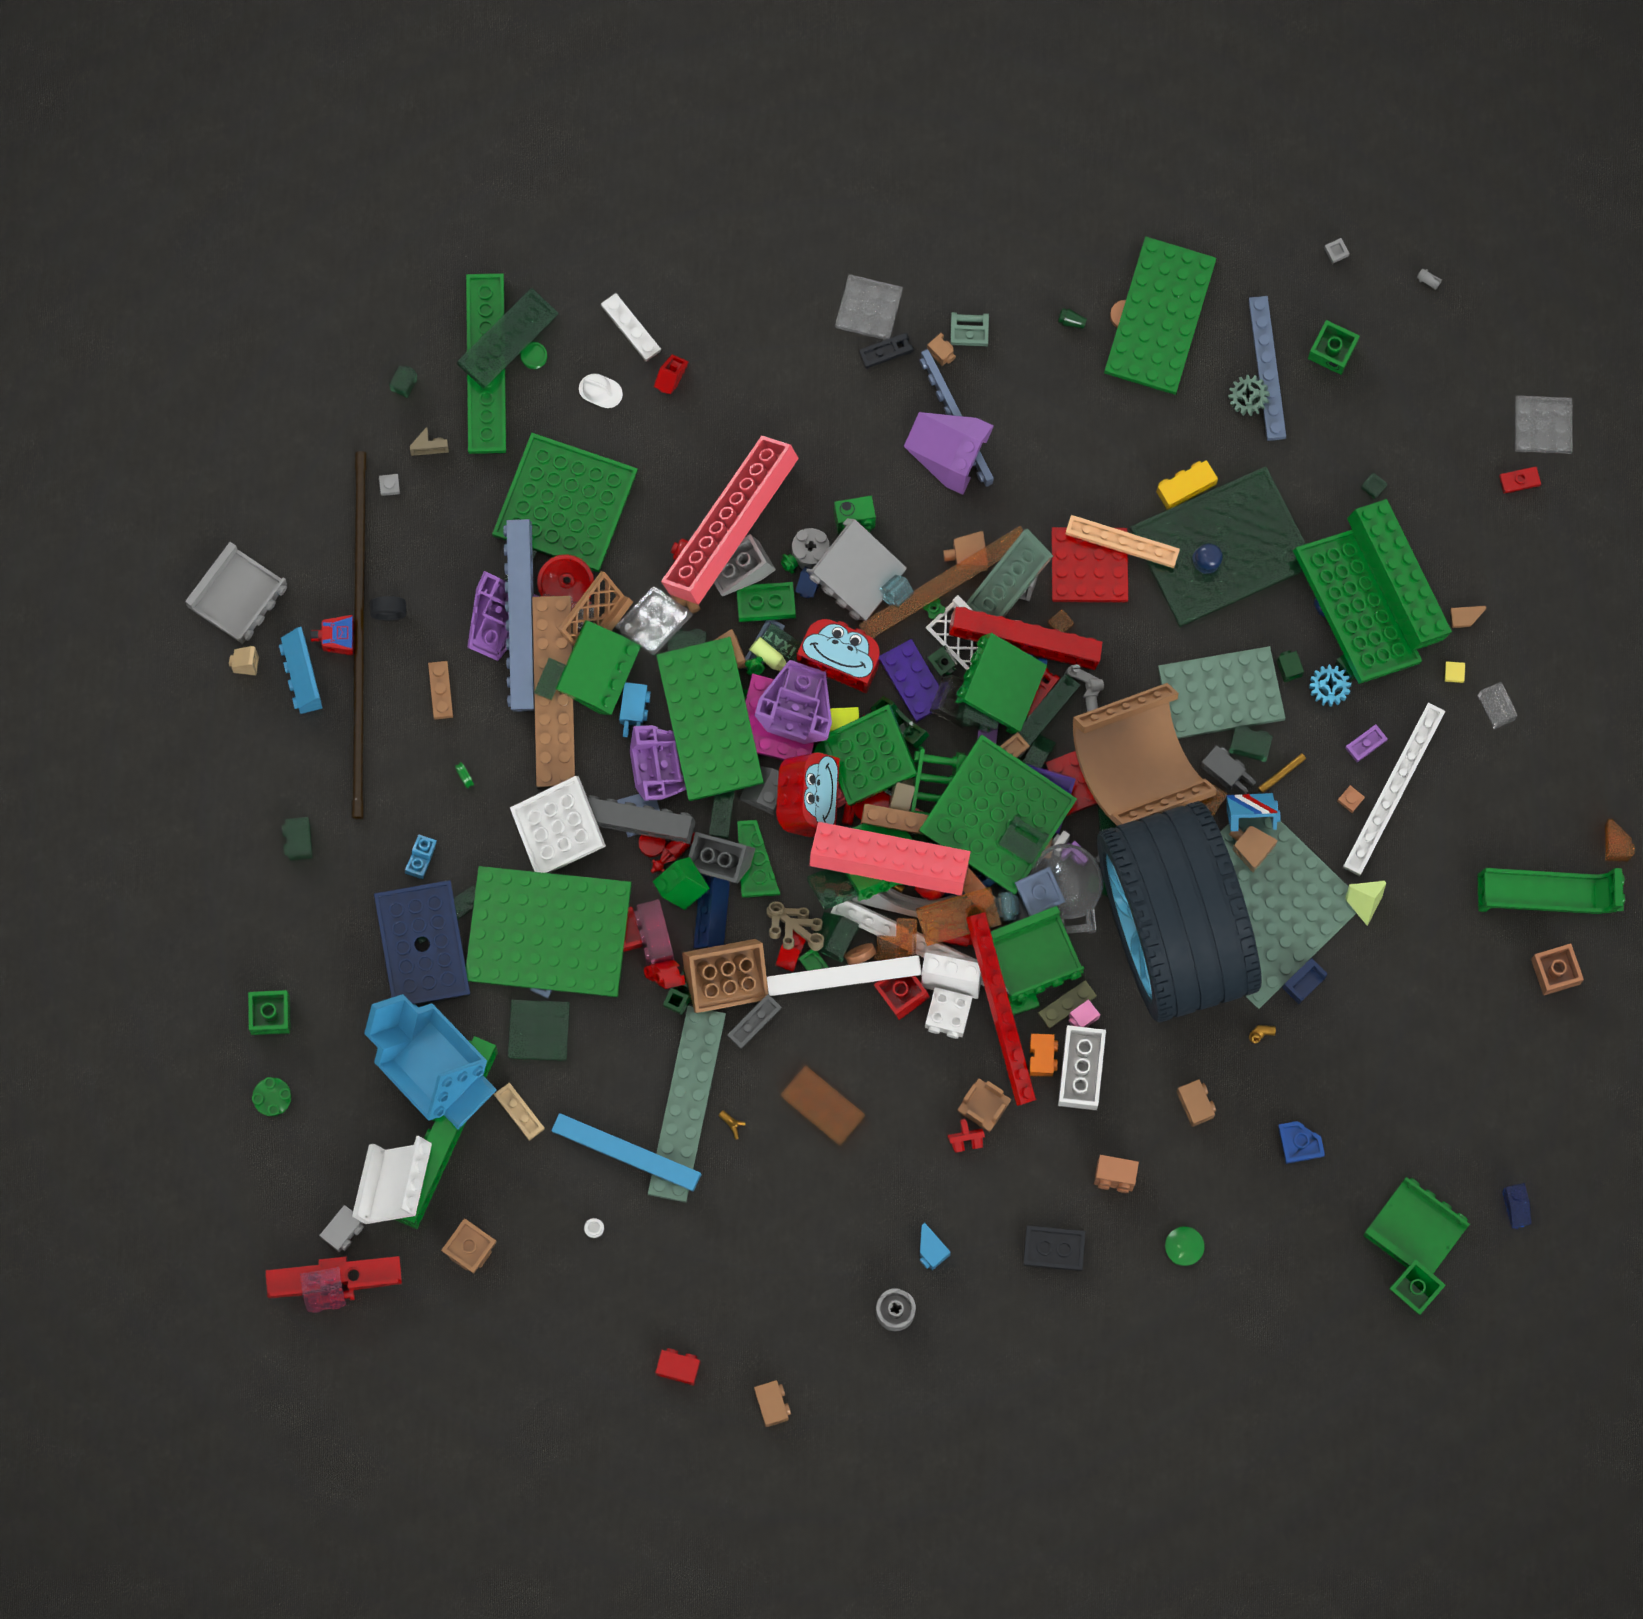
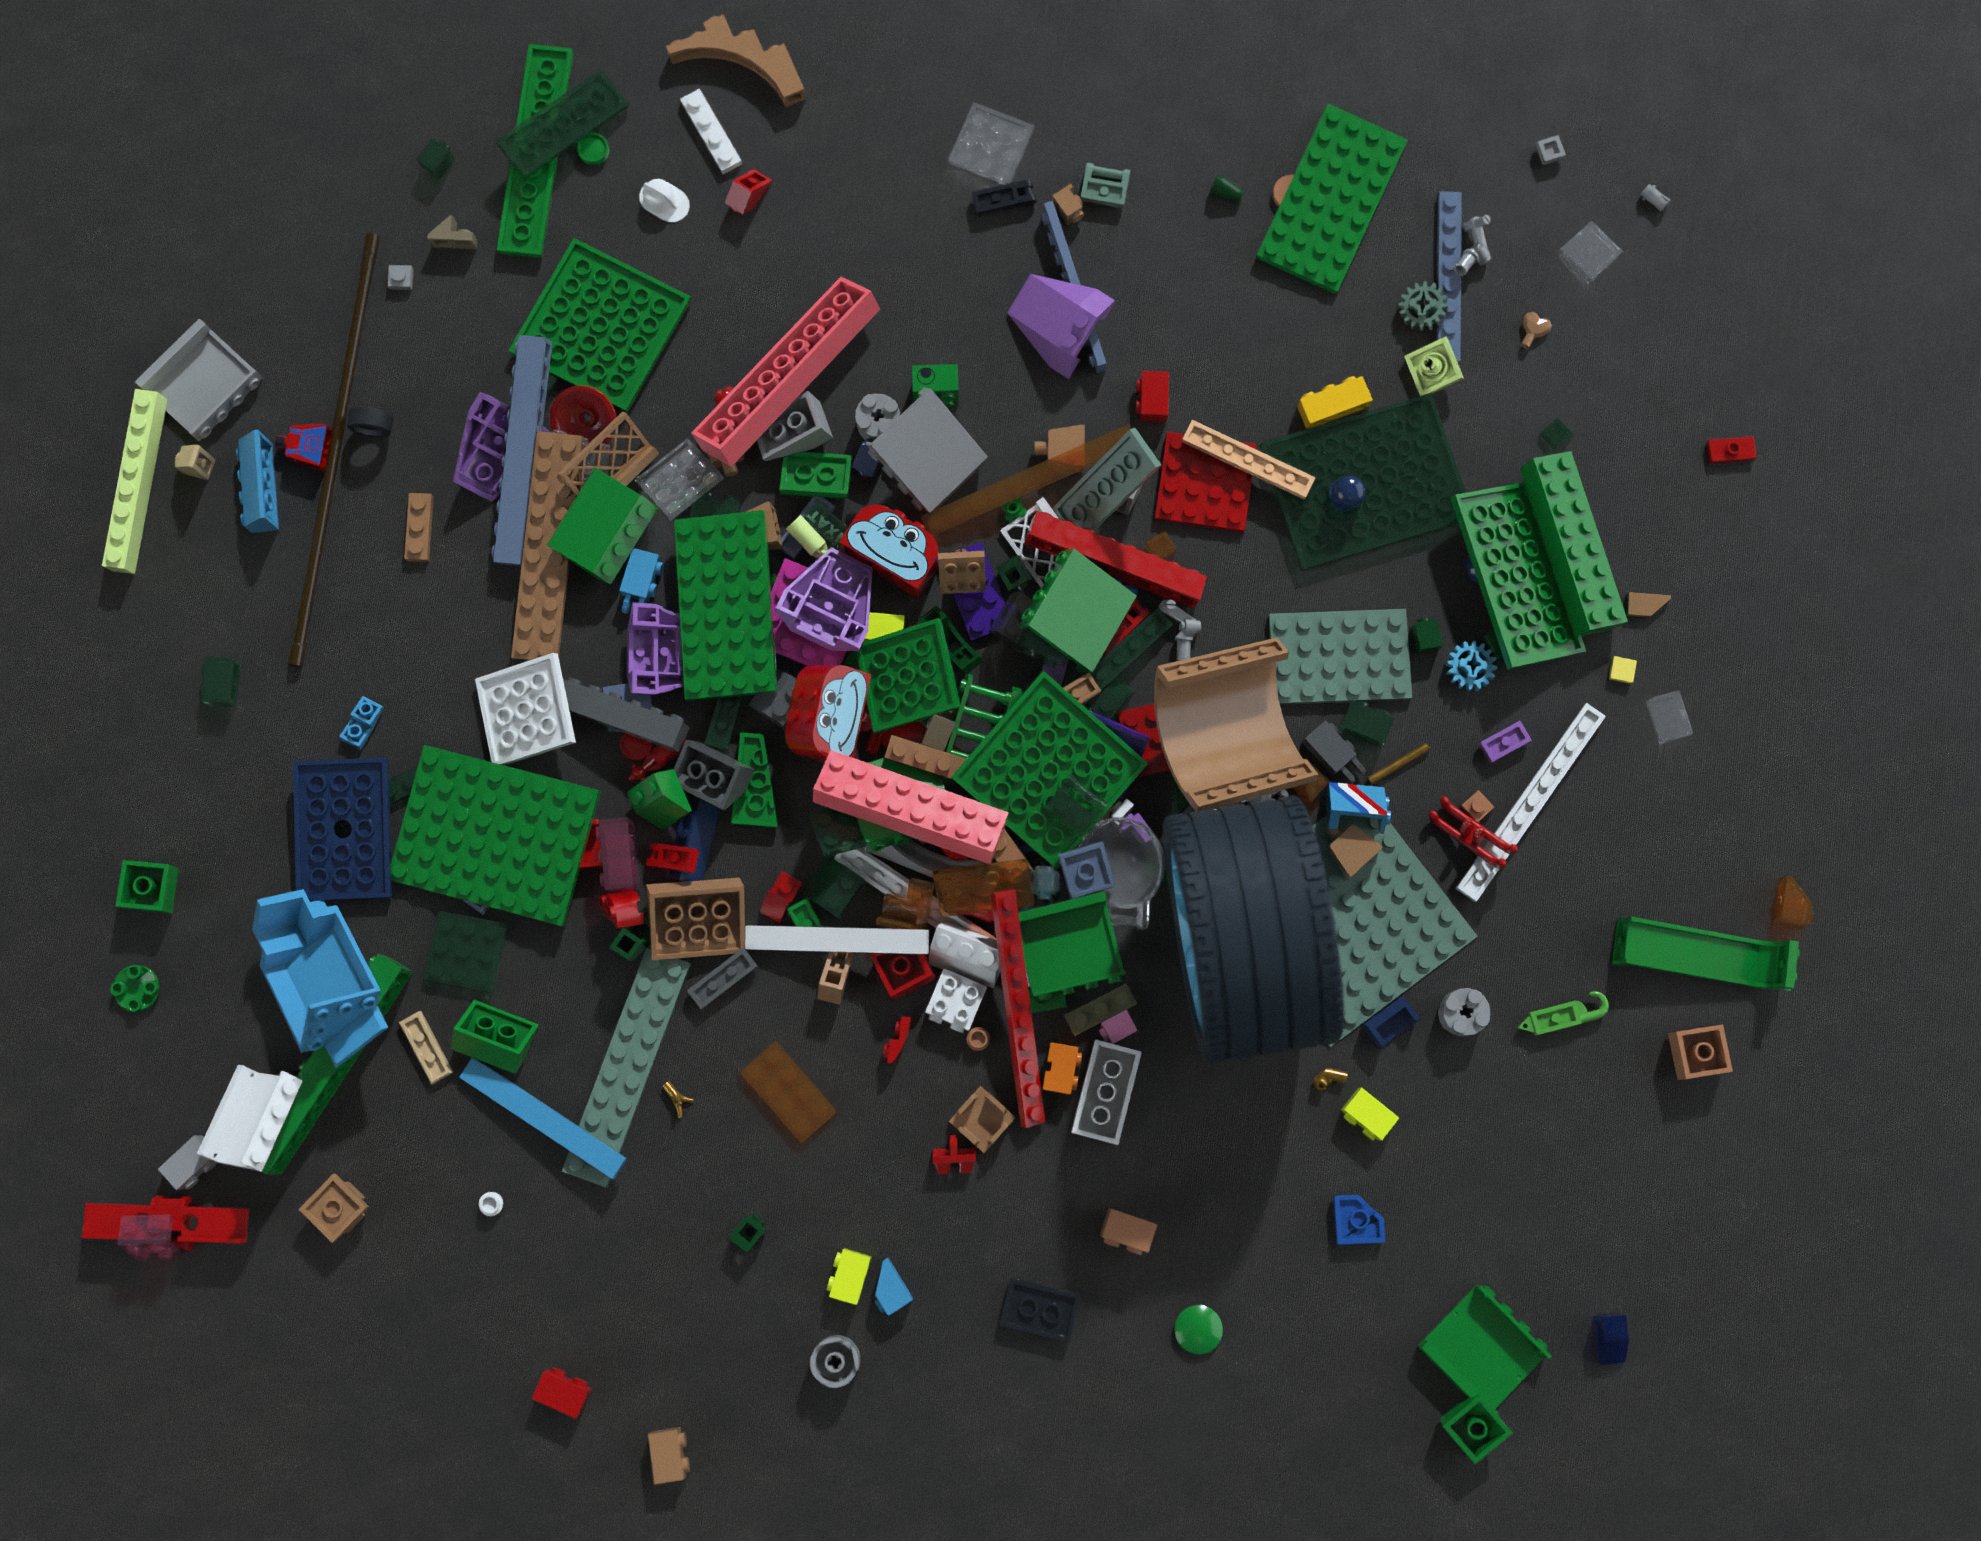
camera: 10 degrees right, 5 degrees up
(199, 684) = (134, 481): none -> yellowish green brick
(464, 775) = (426, 632): green piece -> none
(549, 679) = (541, 532): clear green tile -> none
(574, 1094) = (493, 1036): none -> green slope
(626, 251) = (744, 49): none -> medium nougat arch
(699, 929) = (672, 857): none -> red plate
(755, 666) = (790, 549): green plate -> none
(778, 912) = (788, 868): dark tan plant -> none
(789, 563) = (850, 432): green plate -> none
(802, 1226) = (740, 1236): none -> dark green brick
(847, 1006) = (835, 976): none -> medium nougat slope
(860, 954) = (861, 914): nougat piece -> none
(896, 590) = (970, 482): clear light blue brick -> none
(896, 1243) = (849, 1276): none -> neon yellow brick
(901, 665) = (962, 572): none -> medium nougat plate
(905, 1054) = (894, 1048): none -> red slope
(971, 1041) = (978, 1038): none -> nougat plate
(1036, 500) = (1153, 396): none -> red brick
(1196, 1103) = (1238, 1154): medium nougat brick -> none
(1264, 444) = (1434, 367): none -> yellowish green plate
(1288, 344) = (1479, 252): none -> light grey pin
(1297, 1056) = (1369, 1114): none -> neon yellow brick
(1333, 347) = (1532, 262): green brick -> none
(1344, 400) = (1534, 328): none -> medium nougat rock
(1348, 821) = (1472, 834): none -> red piece
(1359, 974) = (1477, 1008): none -> light grey brick
(1365, 898) = (1478, 930): yellowish green slope -> none
(1382, 331) = (1590, 251): none -> clear plate
(1444, 957) = (1563, 1016): none -> bright green plate
(1543, 424) = (1769, 387): clear plate -> none

